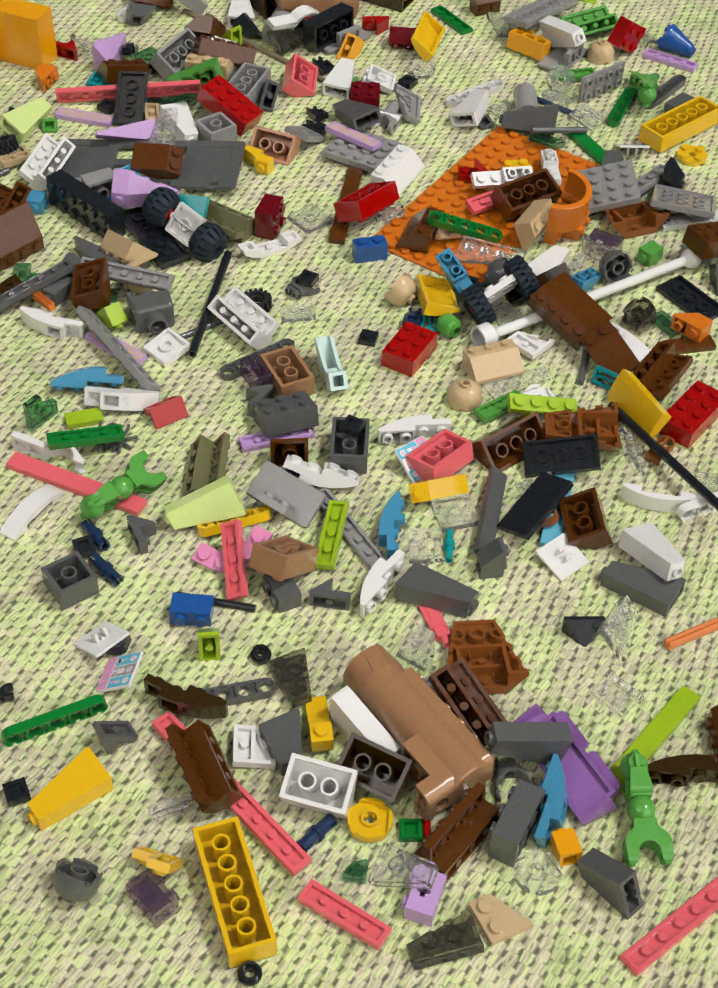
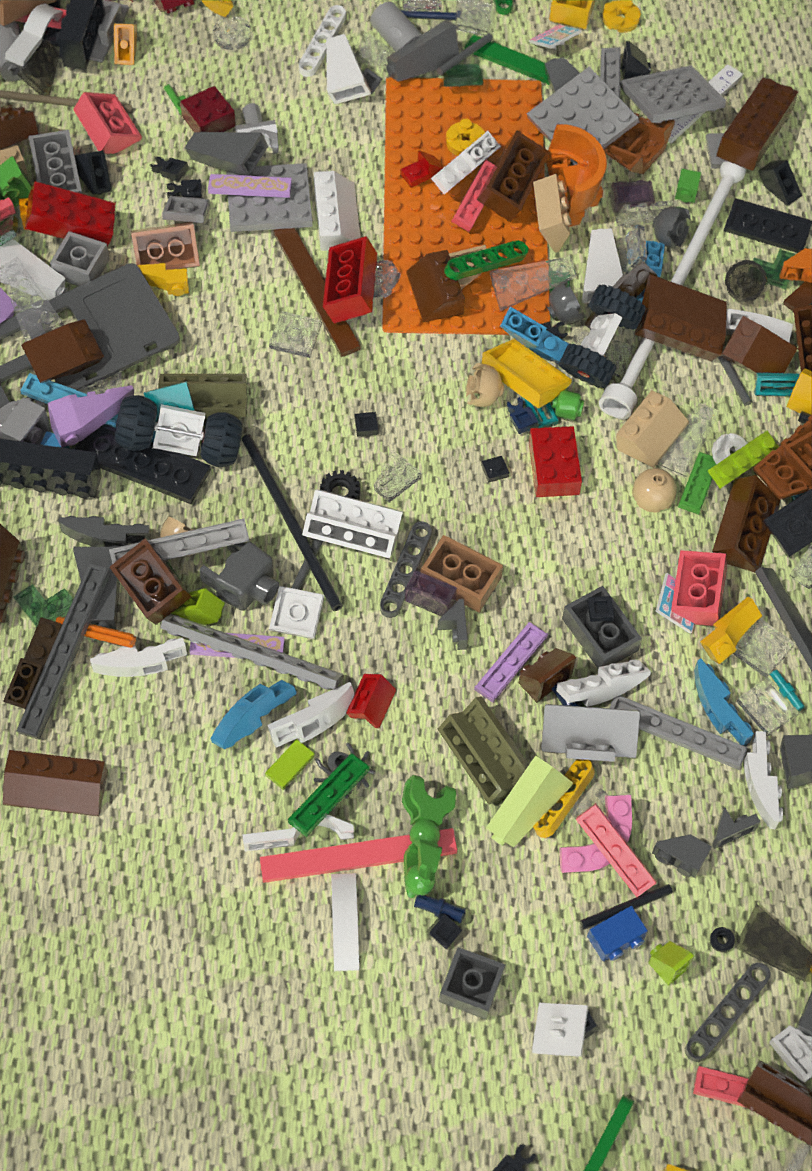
camera: 35 degrees left, 15 degrees up
(39, 412) = (244, 791): clear green tile -> none
(105, 569) = (488, 942): dark blue pin -> none
(114, 732) = (672, 1129): dark grey slope -> none
(119, 672) = (614, 1056): piece -> none
(125, 249) = (136, 502): tan slope -> none
(140, 531) = (479, 873): dark grey slope -> none
(191, 702) = (718, 1044): dark brown slope -> none
(263, 250) = (287, 400): white slope -> none
(269, 216) = (259, 361): dark red brick -> none
(283, 557) = (666, 817): medium nougat brick -> none
(286, 414) = (506, 629): dark grey brick -> none
(299, 291) = (365, 448): dark grey helmet -> none
(323, 66) = (115, 85): black plate -> none
(330, 364) = (493, 533): light aqua arch -> none
(332, 534) = (675, 753): lime plate -> none
(339, 79) = (157, 101): white slope -> none
(369, 249) = (401, 344): blue brick -> none
(381, 76) = (199, 75): white plate -> none
(408, 81) = (233, 64): black plate -> none
(408, 428) = (640, 566): white slope -> none
(409, 103) = (267, 98): light grey wing -> none
(530, 344) = (663, 381): white wing -> none
(550, 161) = (498, 116): white slope -> none

